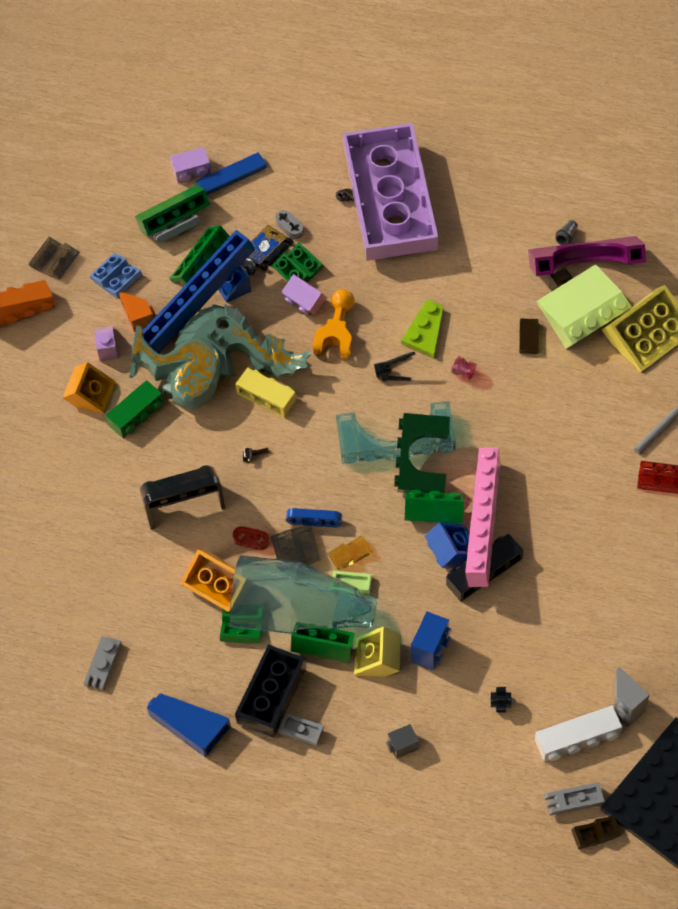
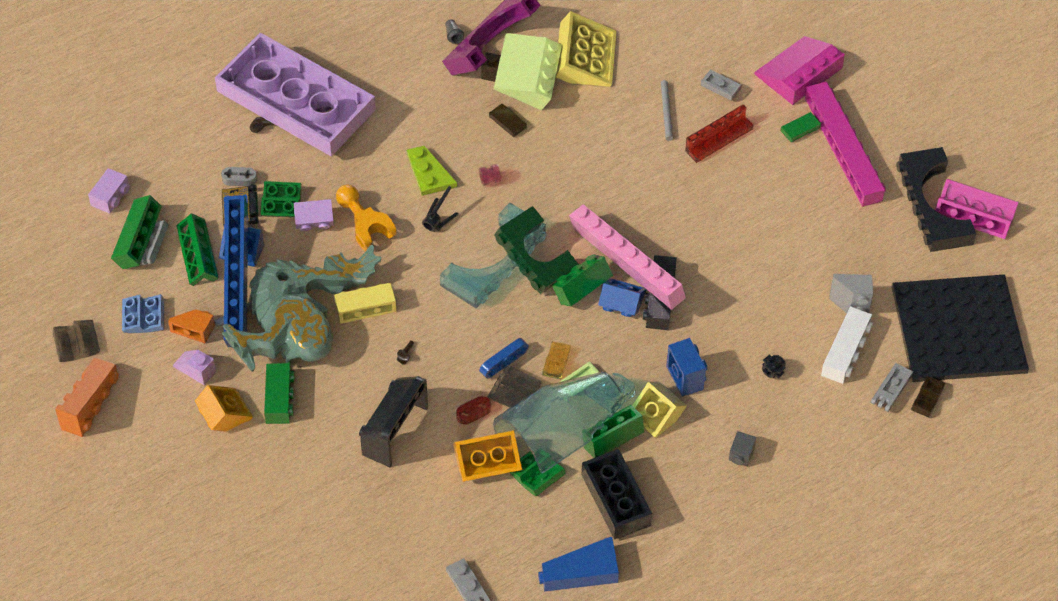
camera: 50 degrees left, 5 degrees down
(232, 173) = (149, 172): blue tile -> none
(301, 729) = (666, 502): light grey plate -> none

